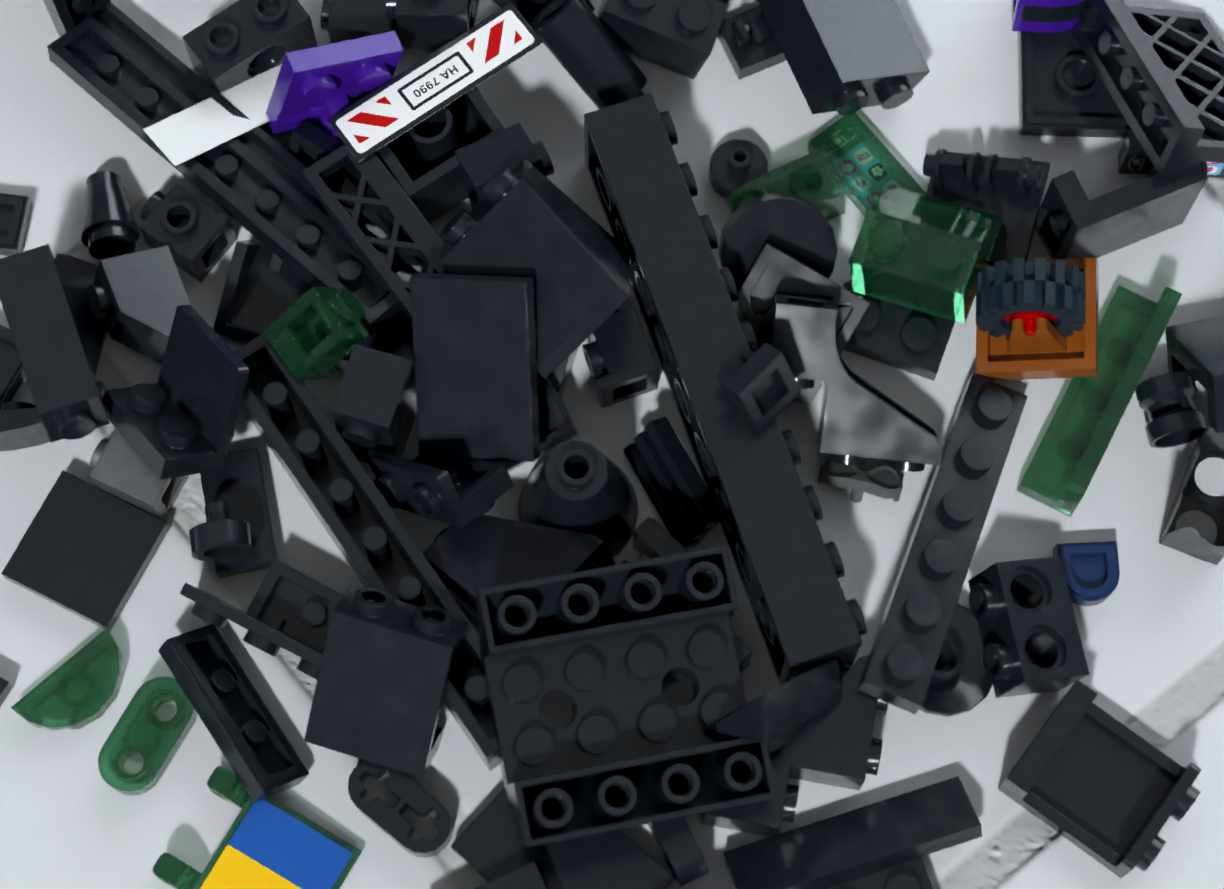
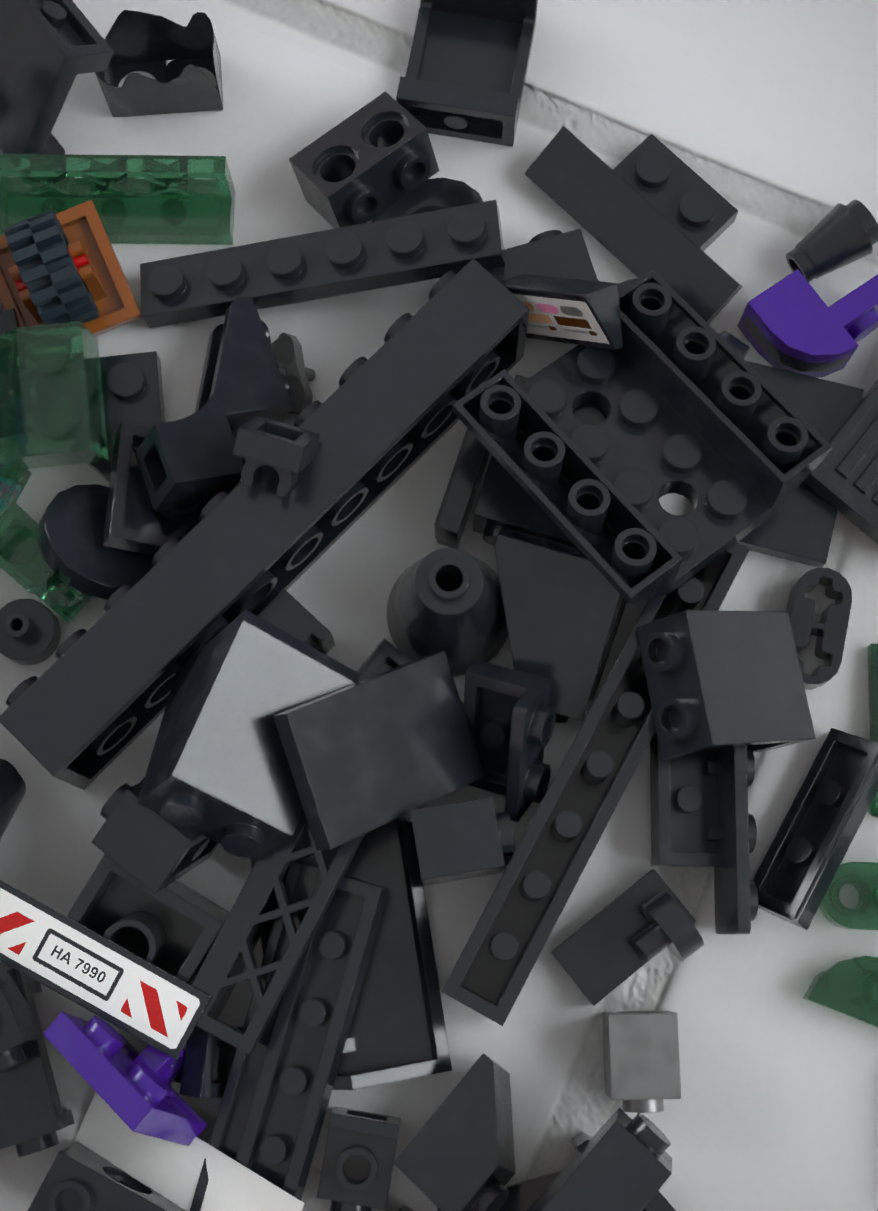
camera: 115 degrees left, 5 degrees up
(86, 550) = (743, 1071): black tile -> none
(192, 410) = (563, 1035): black bracket -> none
(302, 334) = (419, 934): clear green brick -> none
(673, 483) = (385, 531): black tile -> none
(1089, 570) = (273, 146): dark blue tile -> none
(1171, 409) = (108, 124): black wheel -> none

